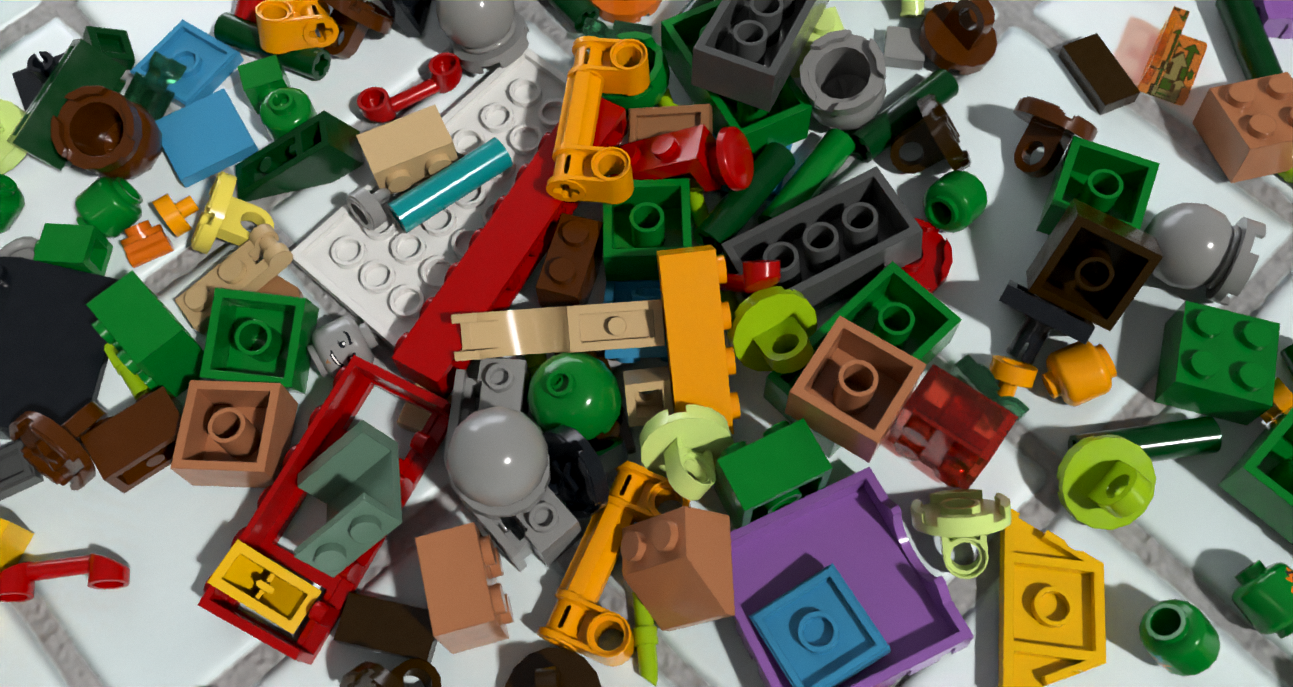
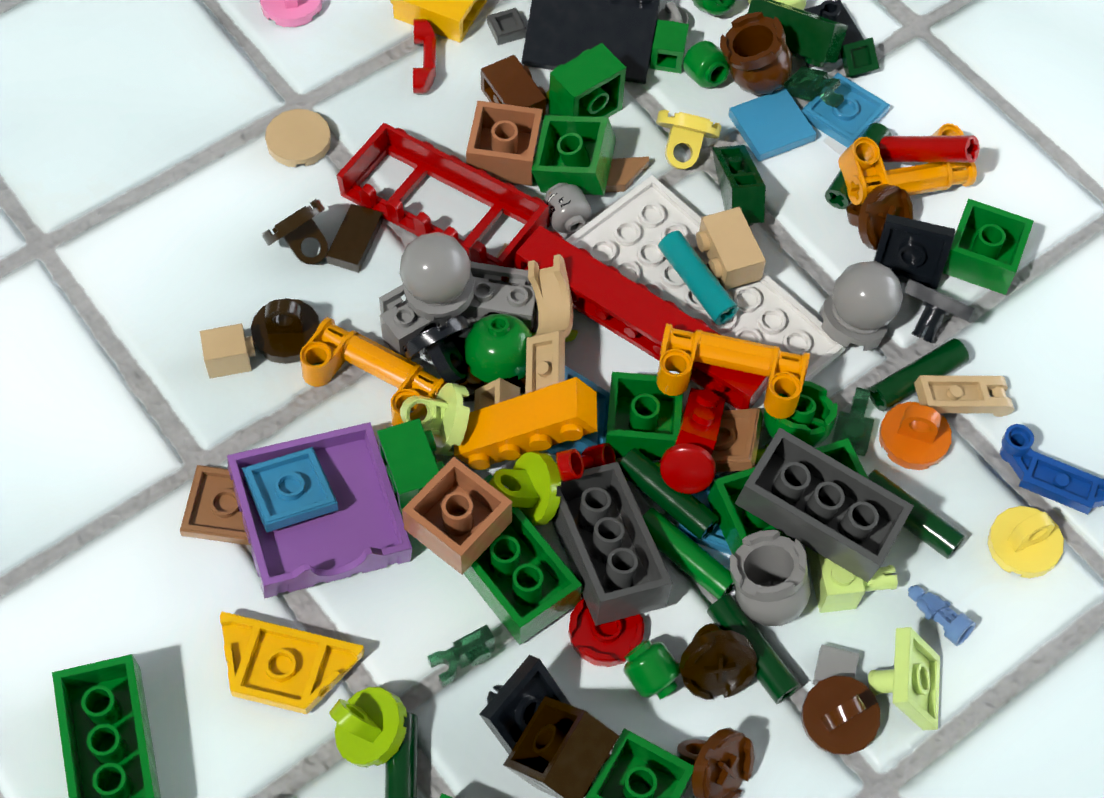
camera: 90 degrees right, 5 degrees down
(57, 449) = (508, 42): reddish brown tile -> none
(145, 243) = (676, 90): orange plate -> none
(176, 214) = (697, 103): light orange tile -> none
(236, 272) = (639, 145): tan plate -> none
(262, 78) = (815, 161): green plate -> none
(264, 586) = (391, 160): yellow slope -> none
(285, 110) = (780, 173): green head -> none
(362, 495) = (464, 212): sand green panel -> none
(368, 206) = (680, 220): light grey tile -> none
(379, 107) = (790, 241): red bar -> none
(462, 588) = (363, 268): nougat brick -> none
(571, 262) = (614, 353): reddish brown brick -> none
(645, 640) = (318, 391): lime piece -> none
(681, 566) = (358, 402): nougat slope -> none
(950, 428) = (430, 607): clear red brick -> none
(962, 518) = (356, 605): yellowish green tile -> none
(1012, 374) = (479, 680): light orange tile -> none
(1079, 373) = (468, 736): light orange head -> none
(1179, 637) = (236, 746): green head -> none

